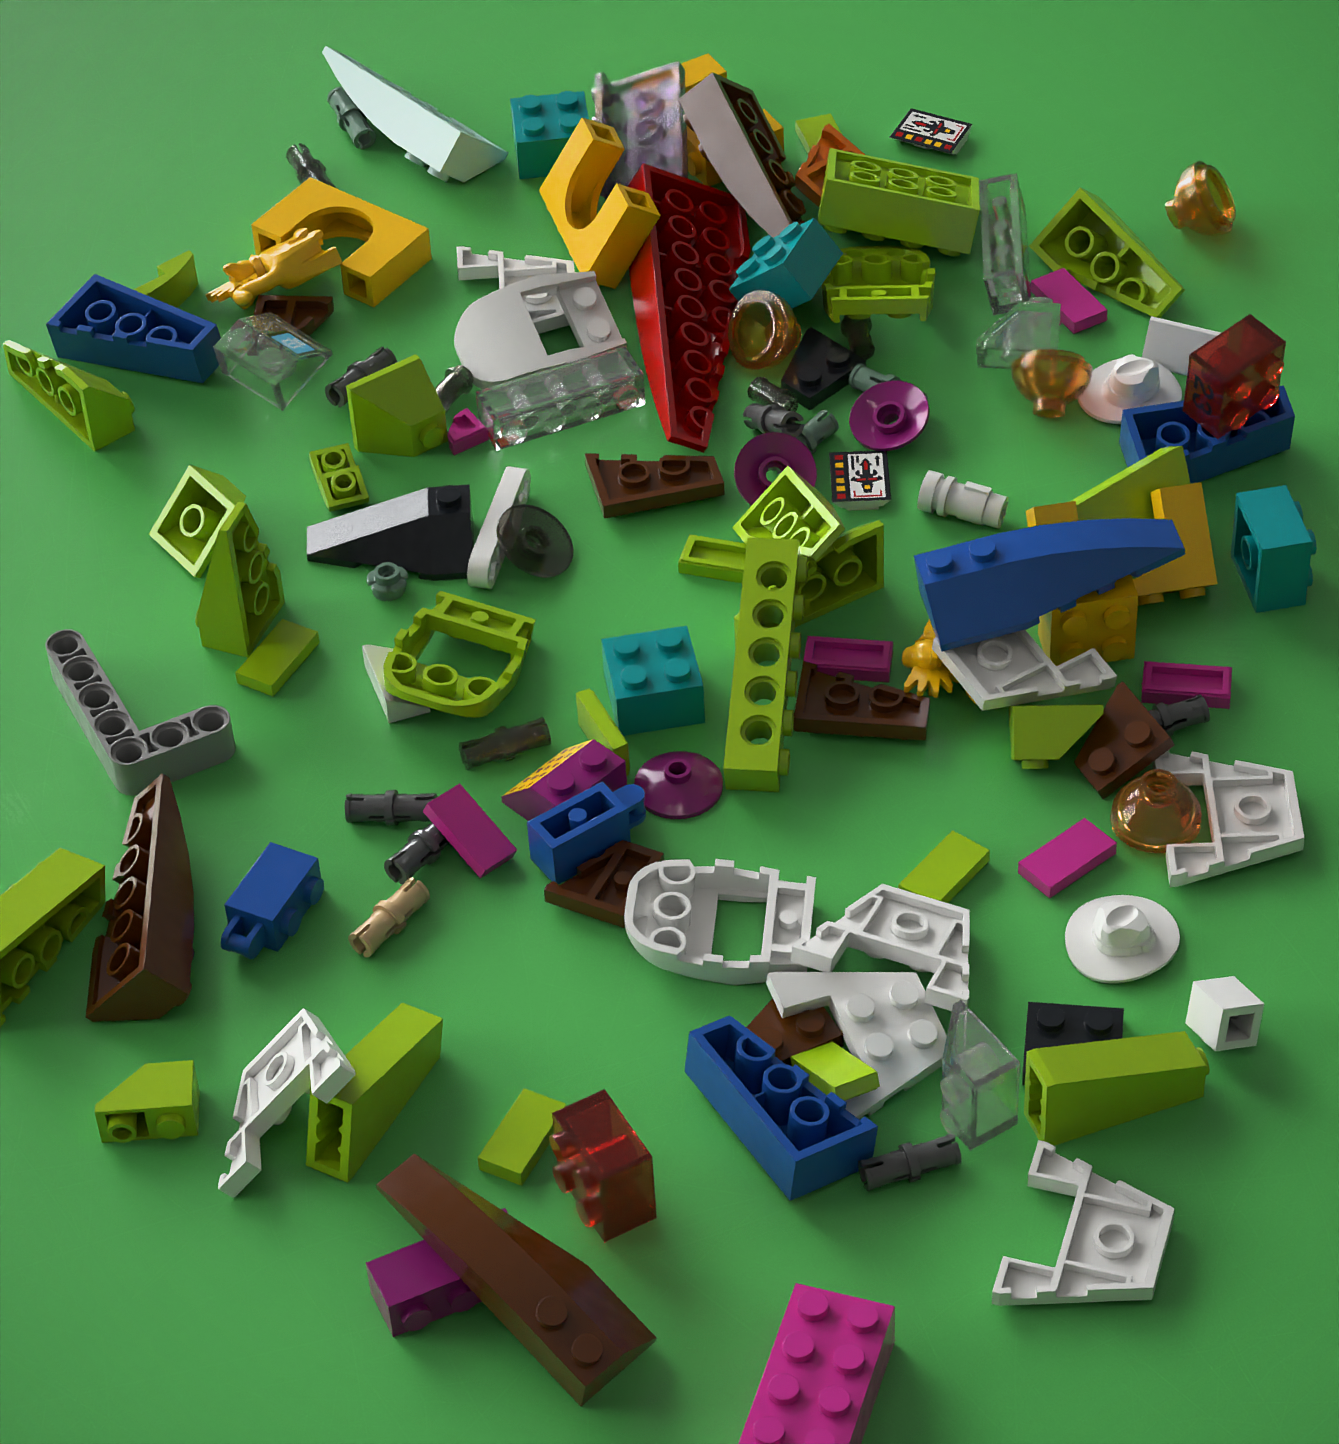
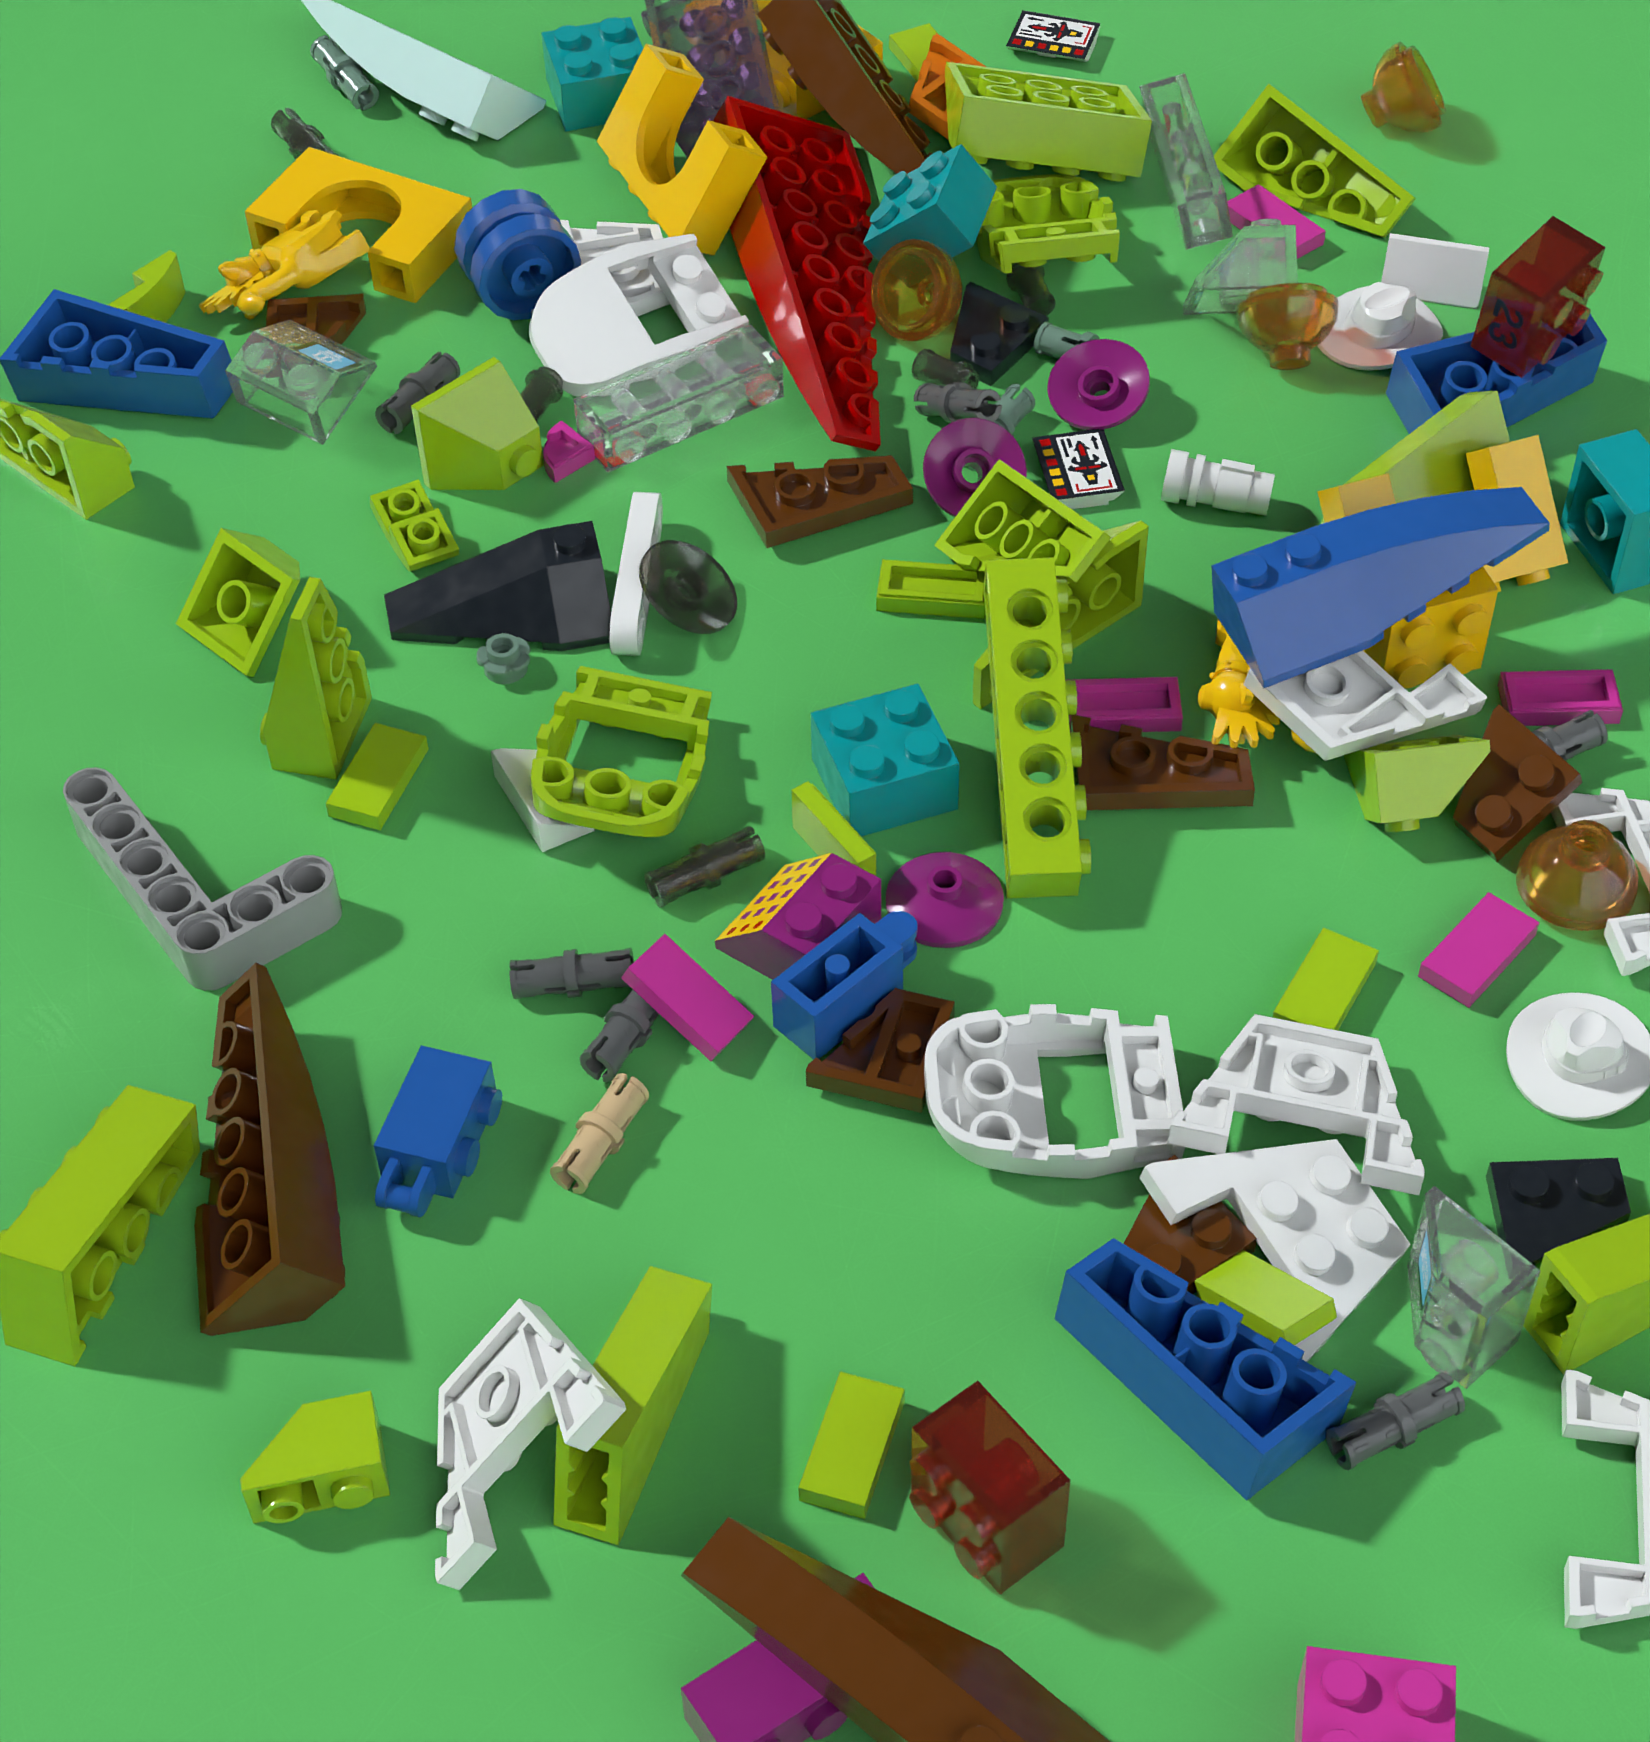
camera: 10 degrees left, 5 degrees up
(451, 272) = (514, 251): none -> blue wheel

